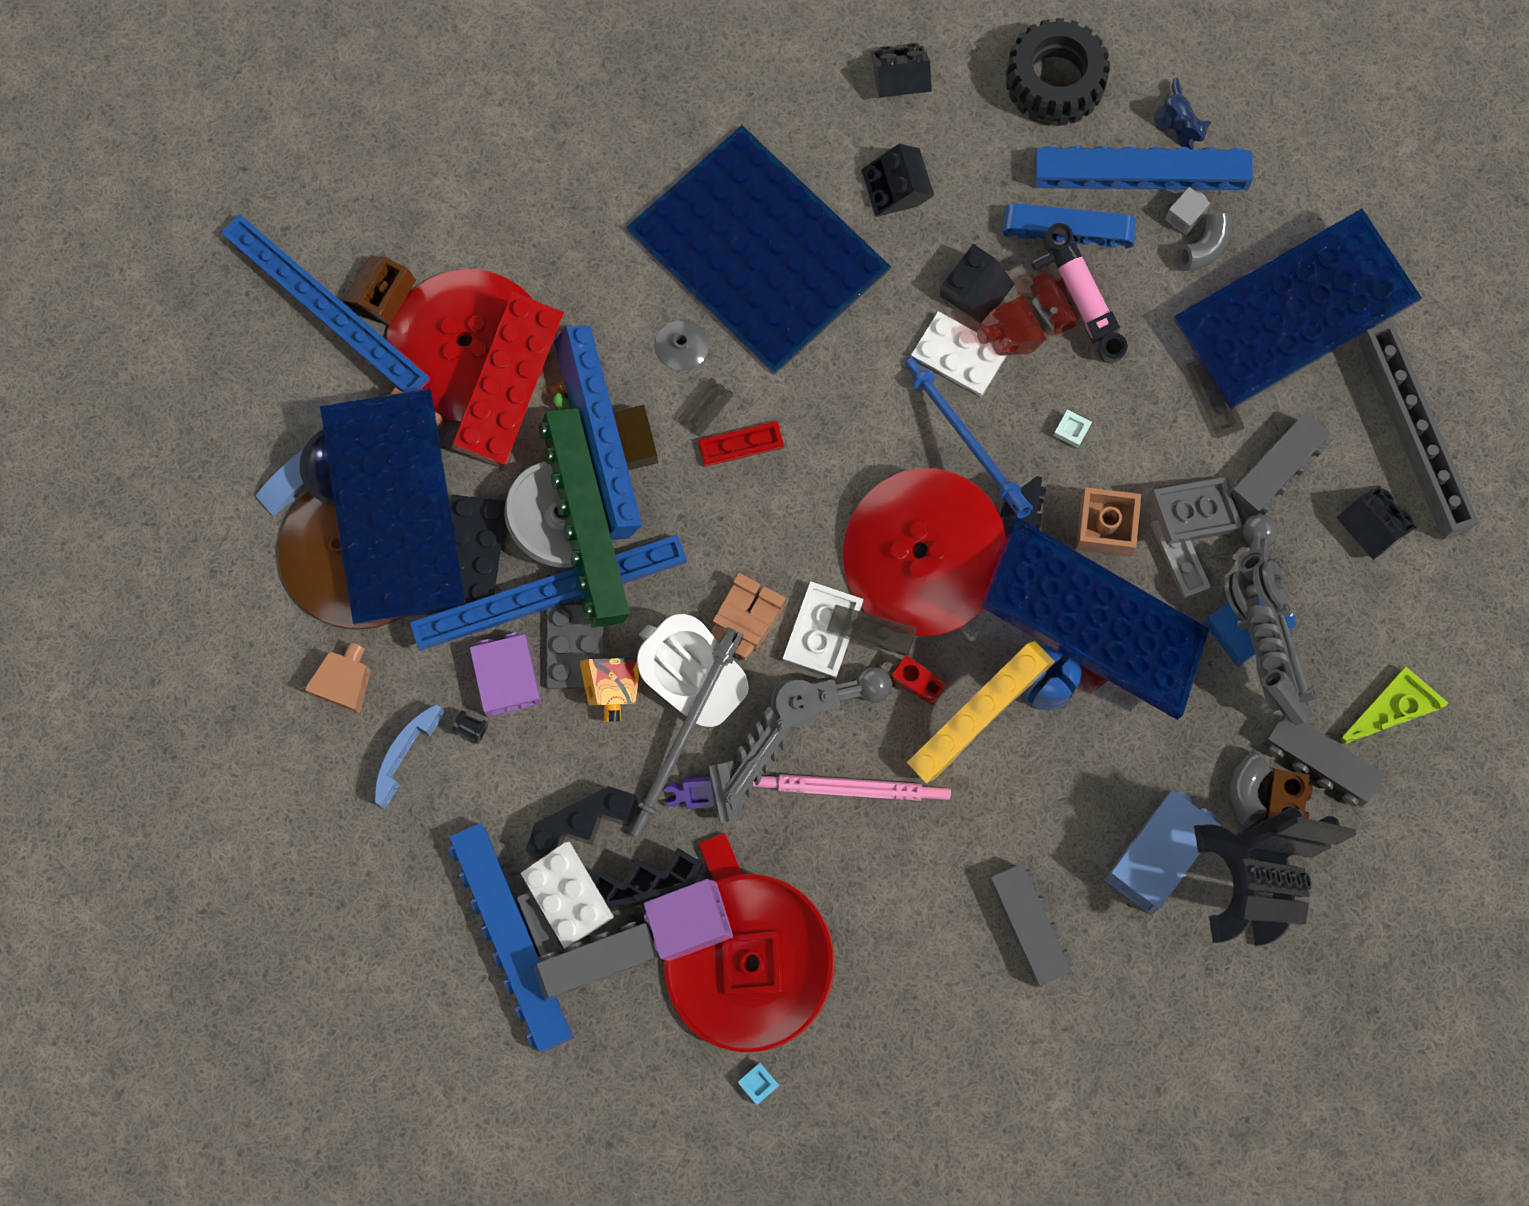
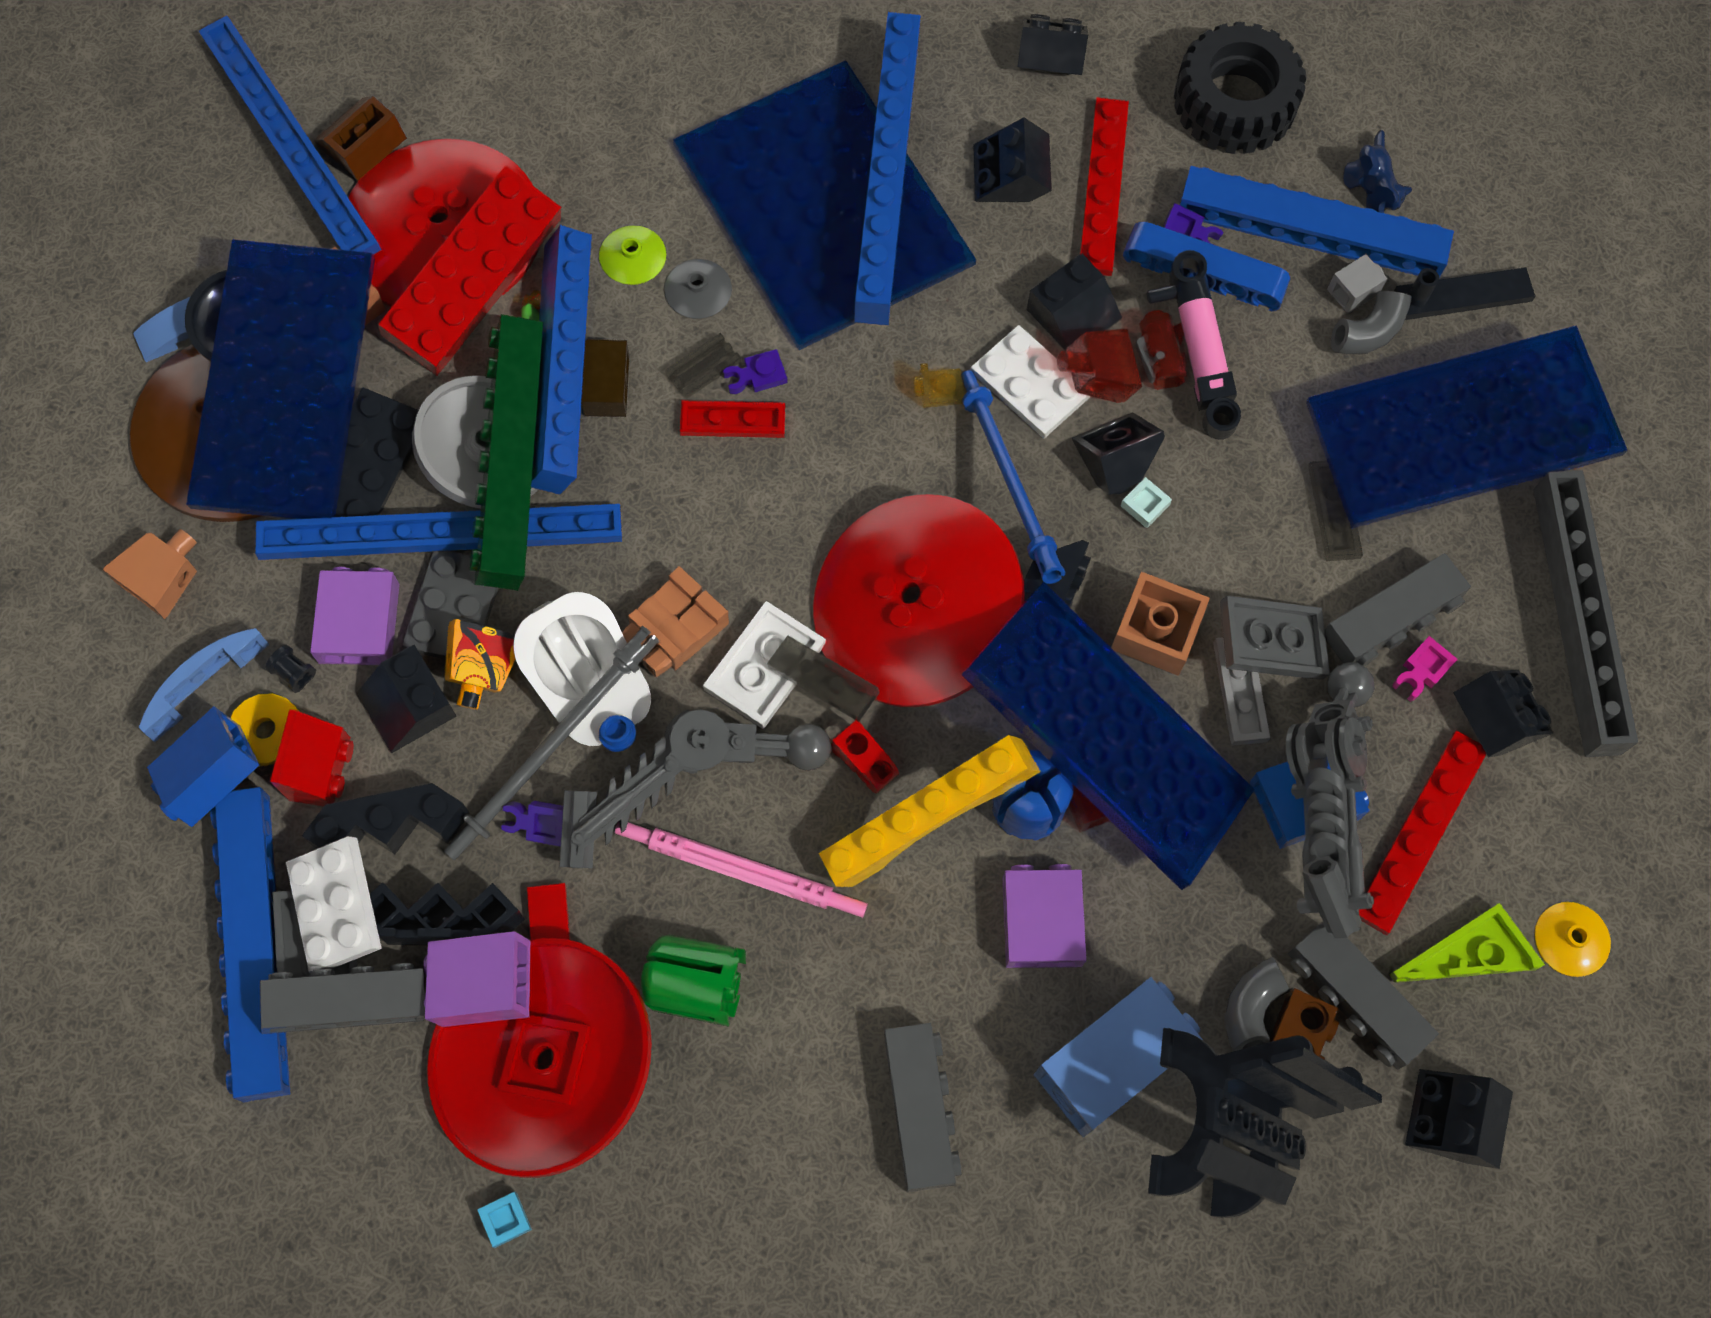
camera: 10 degrees right, 5 degrees down
(434, 820) = (202, 767): none -> blue brick
(457, 763) = (256, 711): none -> yellow tile
(512, 792) = (311, 760): none -> red slope
(563, 728) = (404, 699): none -> black slope
(622, 341) = (634, 266): none -> lime dish
(731, 712) = (617, 733): none -> blue plate
(751, 400) = (761, 371): none -> dark purple plate
(804, 211) = (887, 170): none -> blue brick
(842, 878) = (692, 979): none -> green cylinder
(891, 377) = (938, 387): none -> clear yellow bracket
(972, 177) = (1104, 183): none -> red plate
(1042, 393) = (1119, 451): none -> black slope
(1046, 195) = (1190, 224): none -> dark purple plate
(1081, 764) = (1043, 917): none -> medium lavender brick
(1272, 195) = (1466, 293): none -> black piece
(1311, 500) = (1425, 666): none -> dark pink plate
(1338, 626) = (1422, 831): none -> red plate
(1413, 829) = (1459, 1117): none -> black slope
(1453, 685) = (1558, 947): none -> yellow dish

